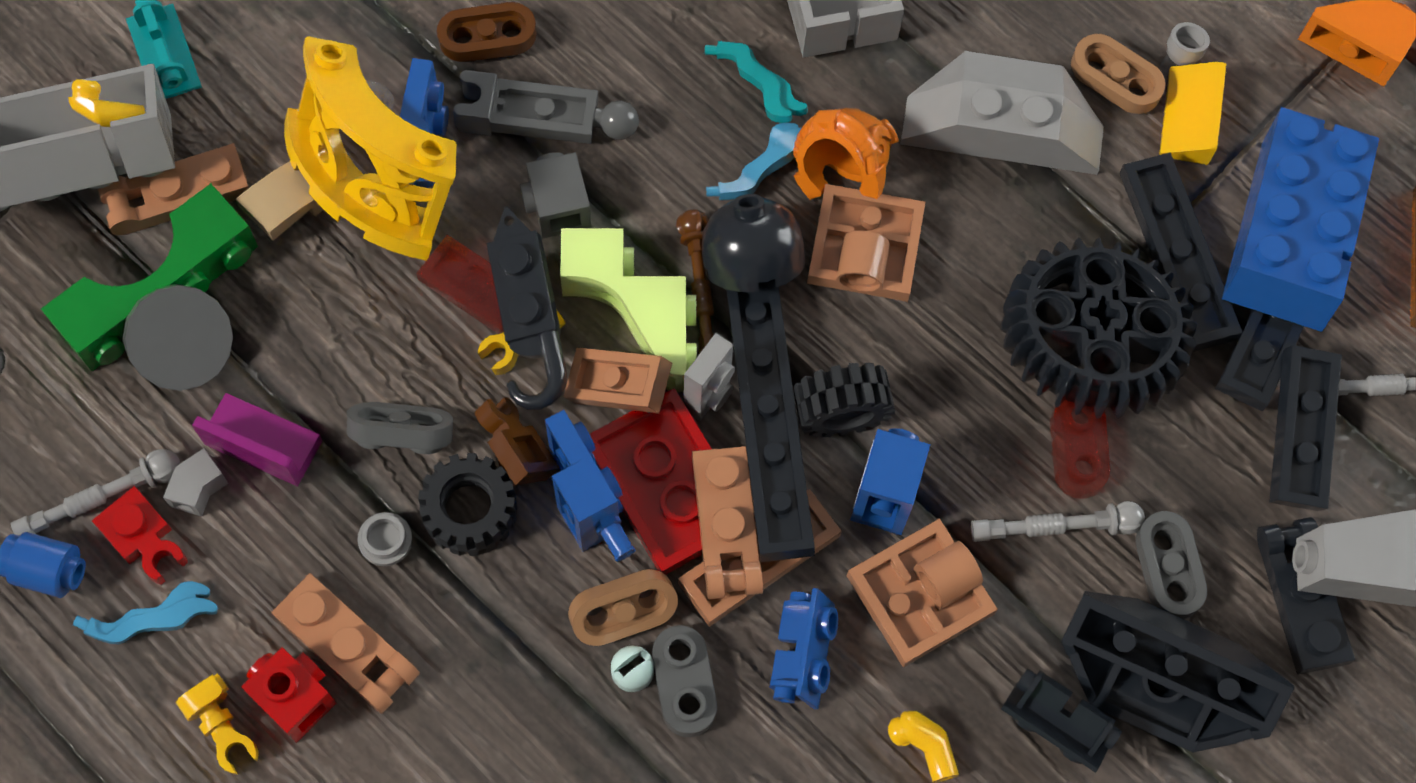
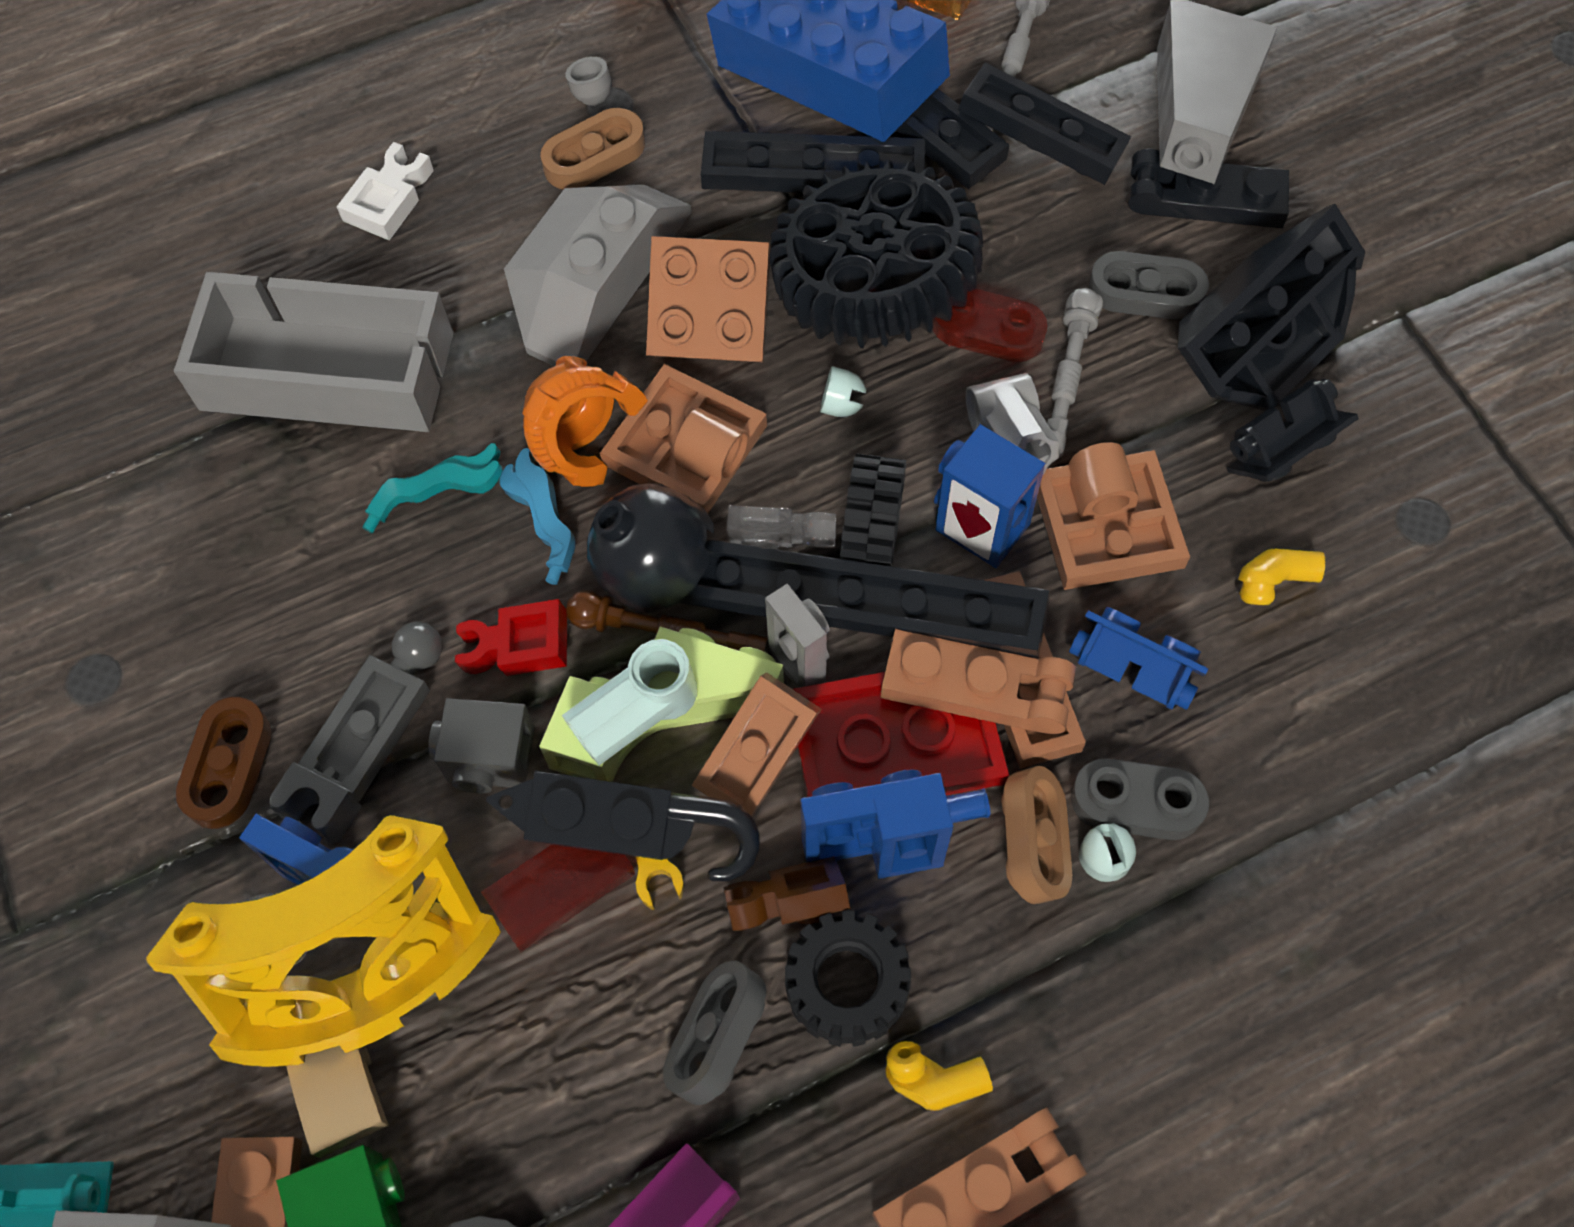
camera: 65 degrees left, 5 degrees down
(385, 539) = (856, 1100): light grey plate -> none
(413, 586) = (930, 1083): none -> yellow arm
(607, 273) = (626, 704): none -> light aqua piece
(650, 190) = (524, 640): none -> red plate
(805, 328) = (779, 527): none -> clear plate
(958, 347) = (838, 391): none -> light aqua hinge
(983, 482) = (1013, 412): none -> light grey piece
(998, 213) = (708, 299): none -> nougat plate
(1193, 111) = (667, 100): yellow slope -> none

